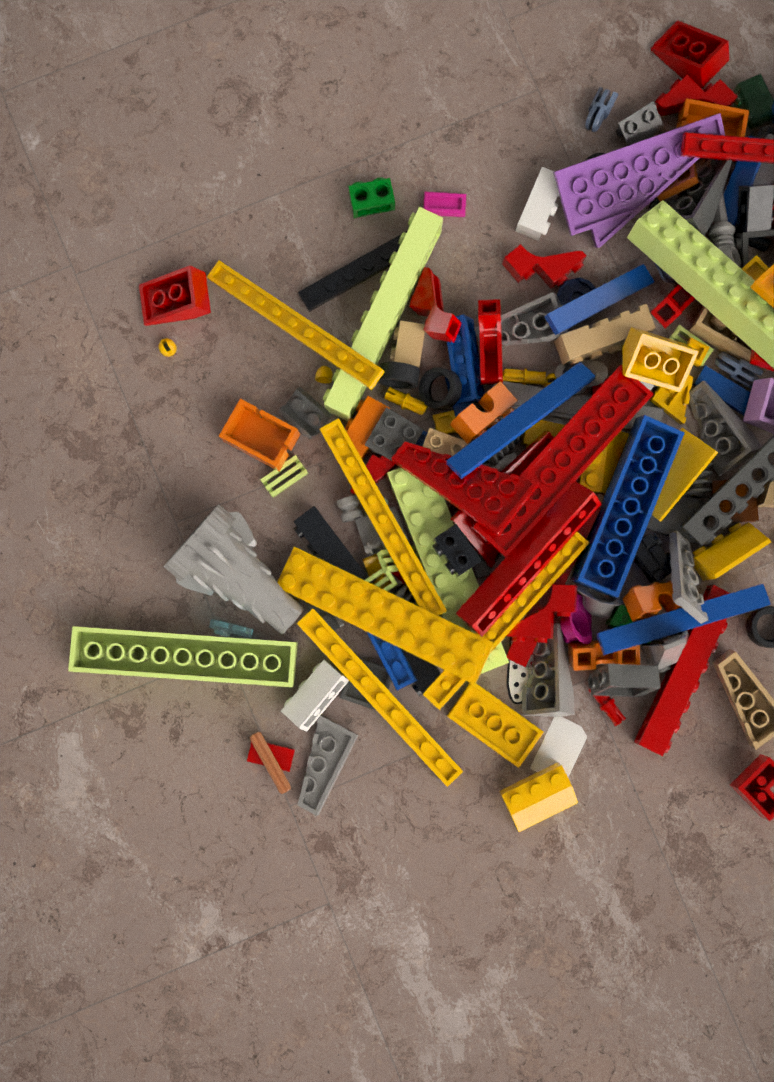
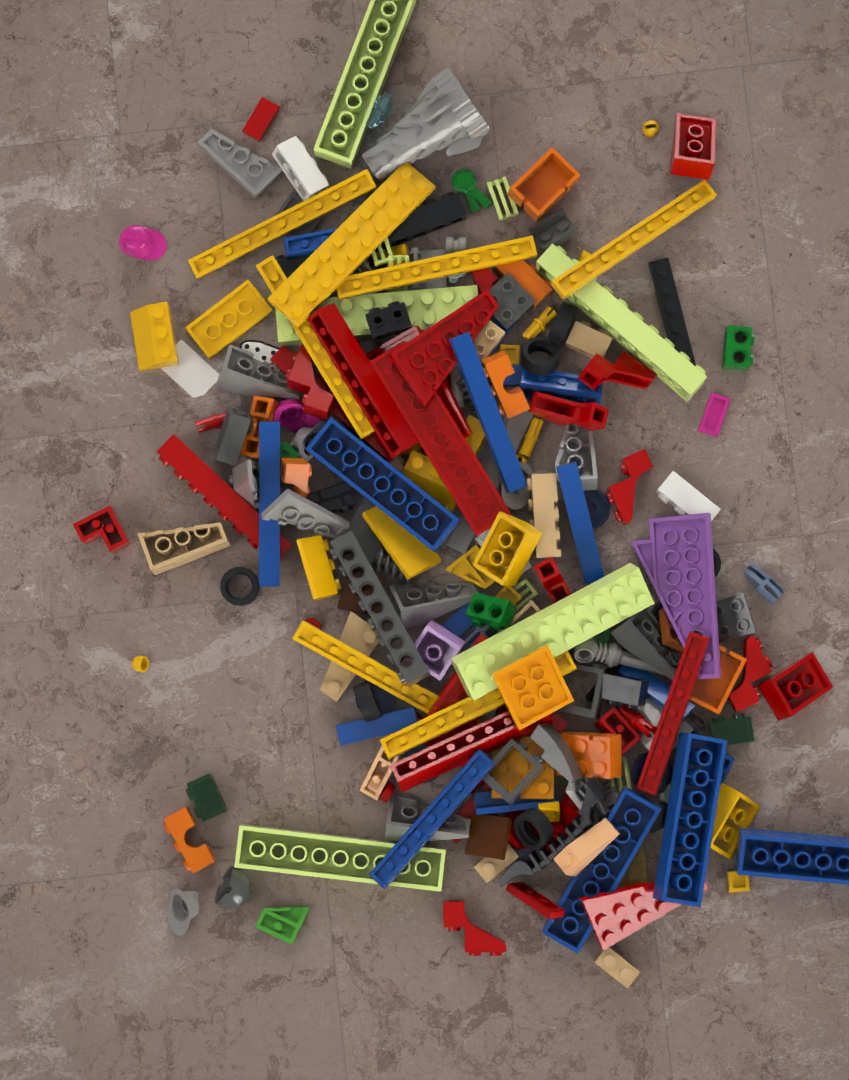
camera: 115 degrees right, 0 degrees up
(270, 762) = (254, 115): nougat axle -> none
(278, 520) = (464, 182): none -> green piece
(440, 841) = (142, 243): none -> dark pink piece
(715, 360) = (492, 608): none -> green brick

